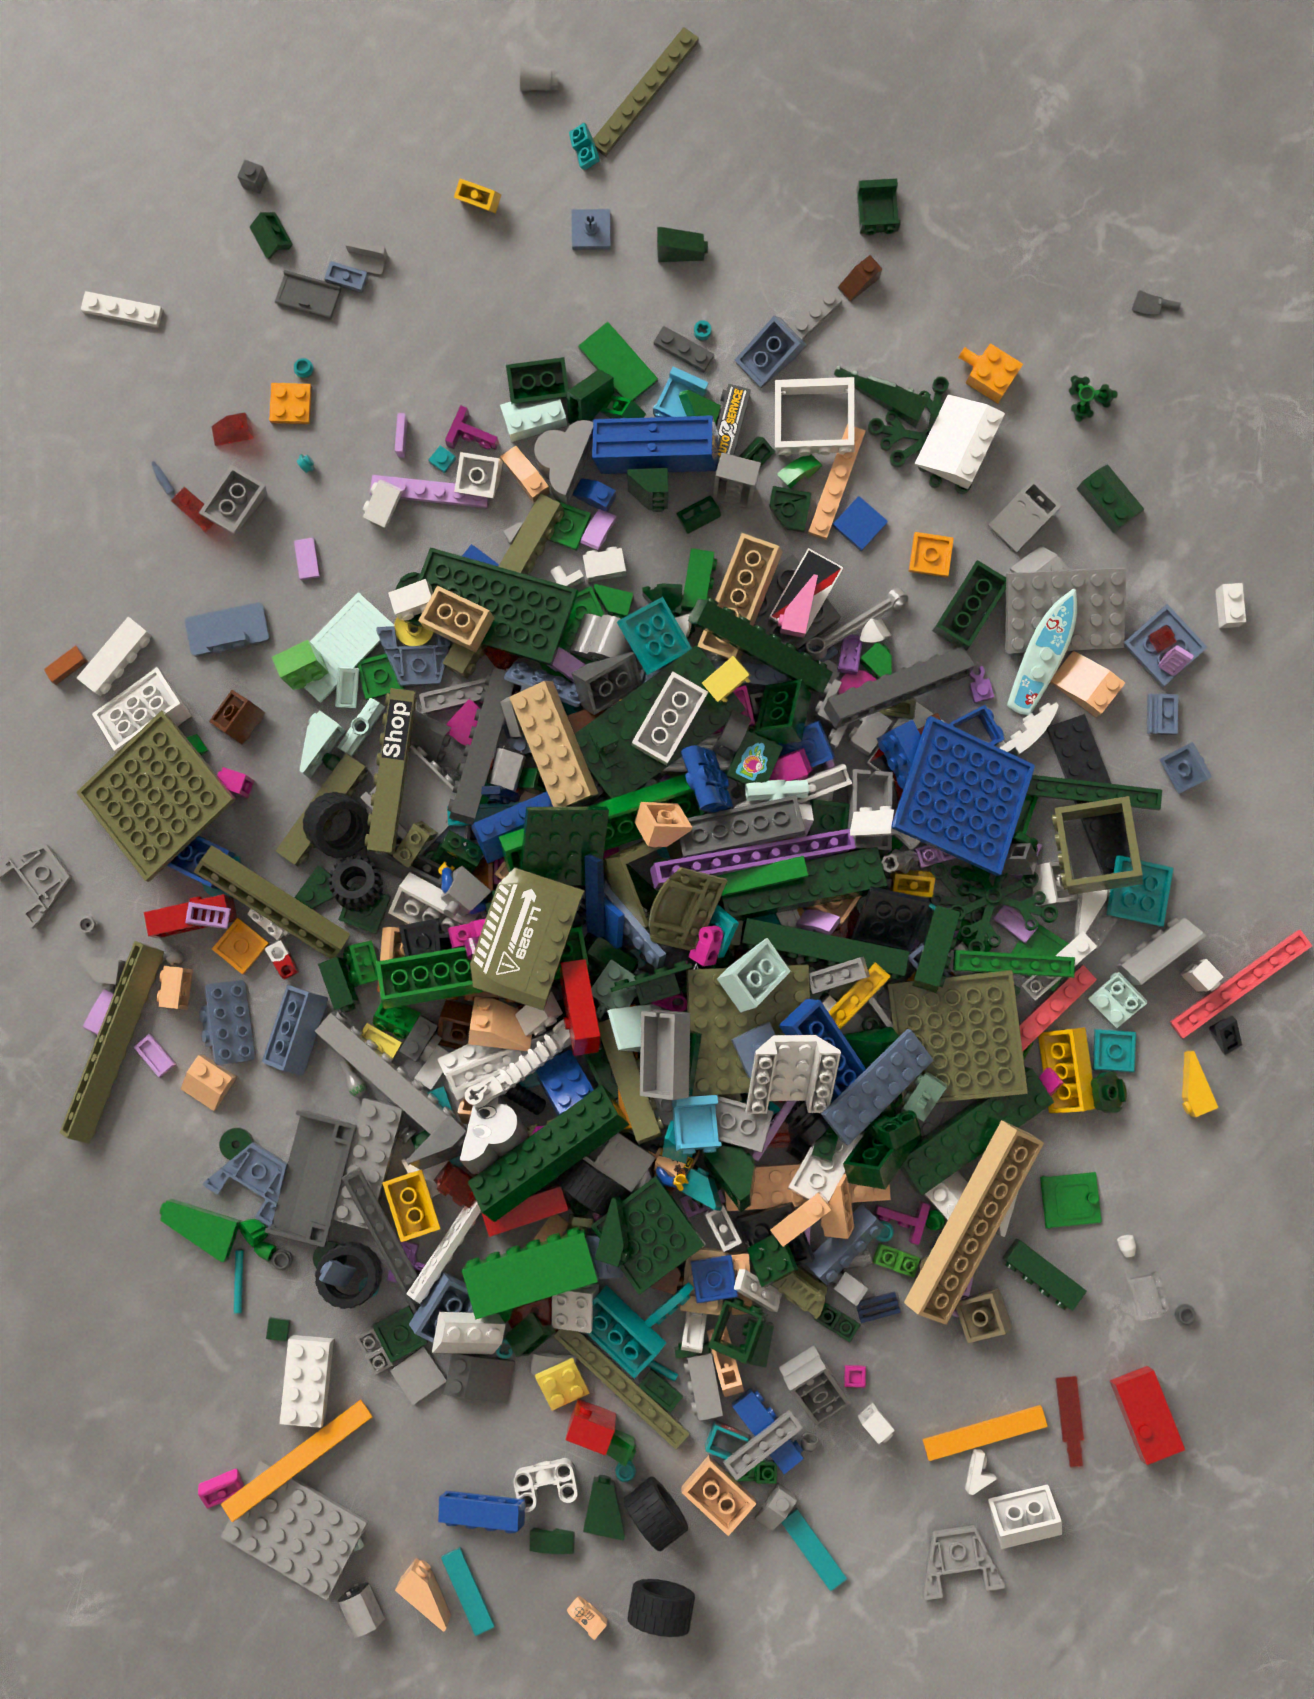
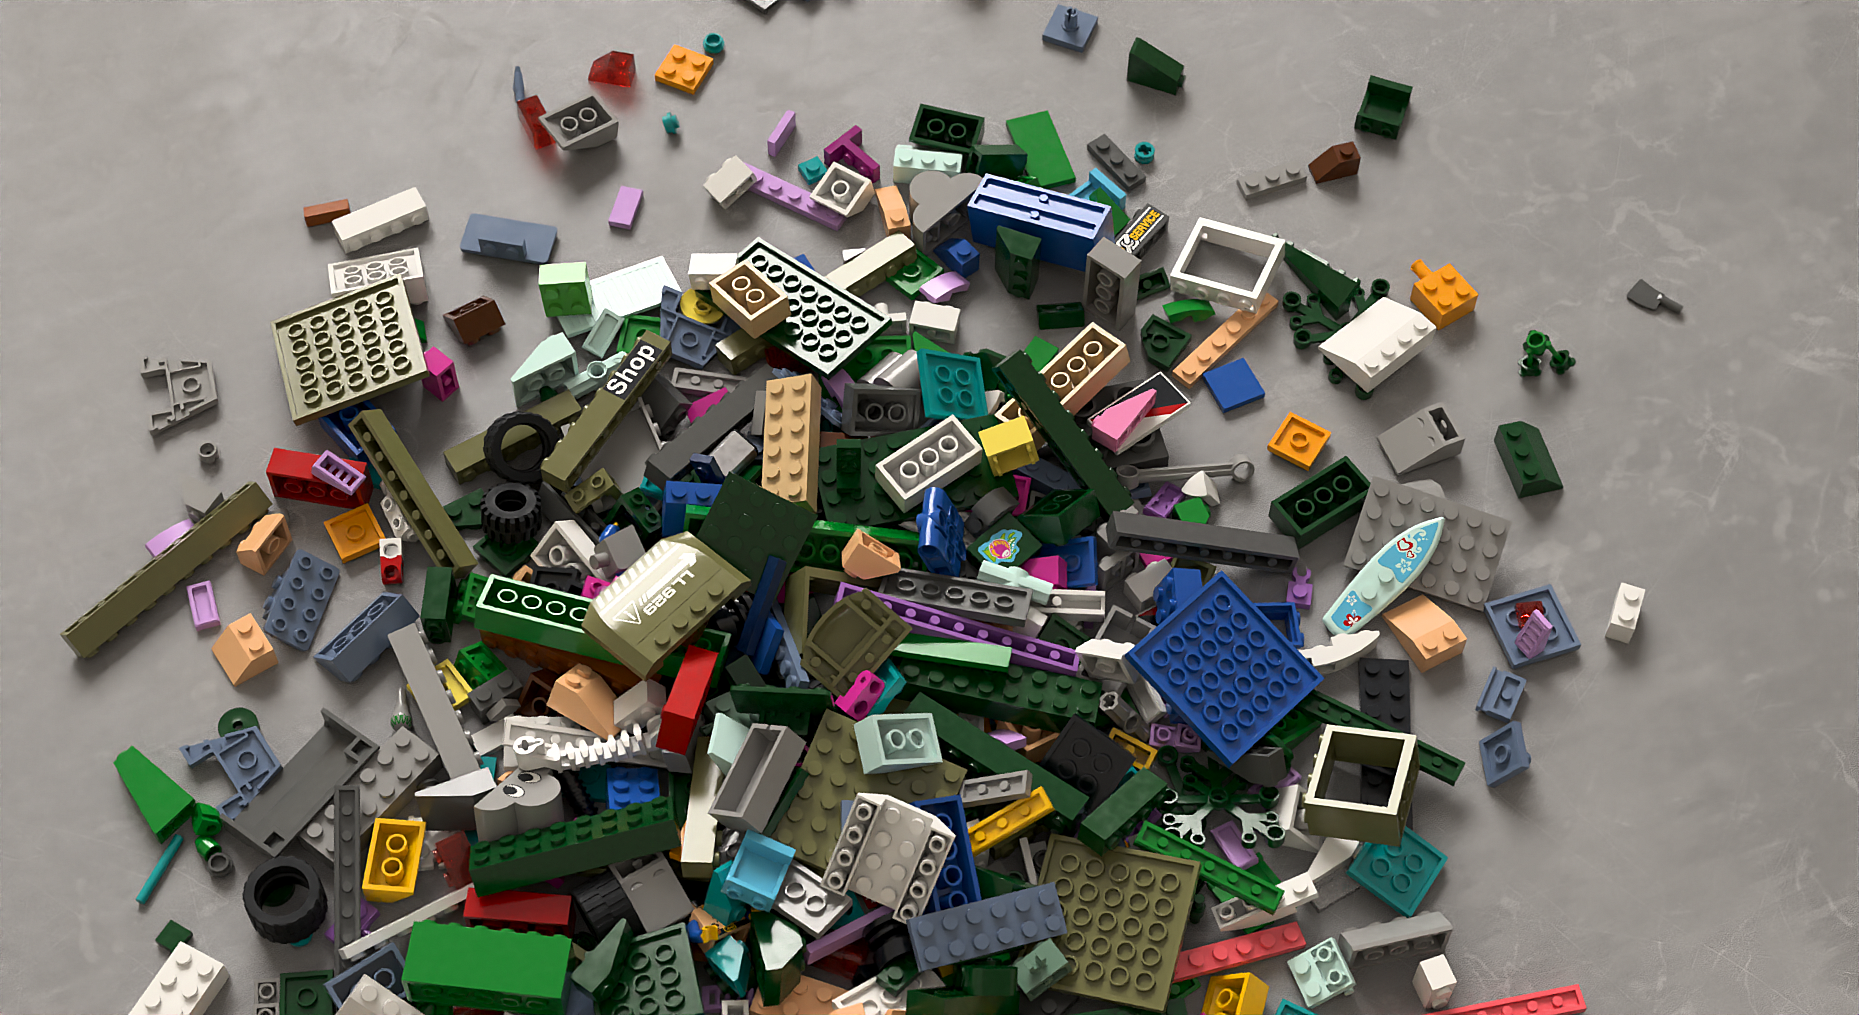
camera: 25 degrees right, 25 degrees down
(336, 1273) = (274, 882): sand blue slope -> none
(770, 351) = (1208, 193): sand blue slope -> none

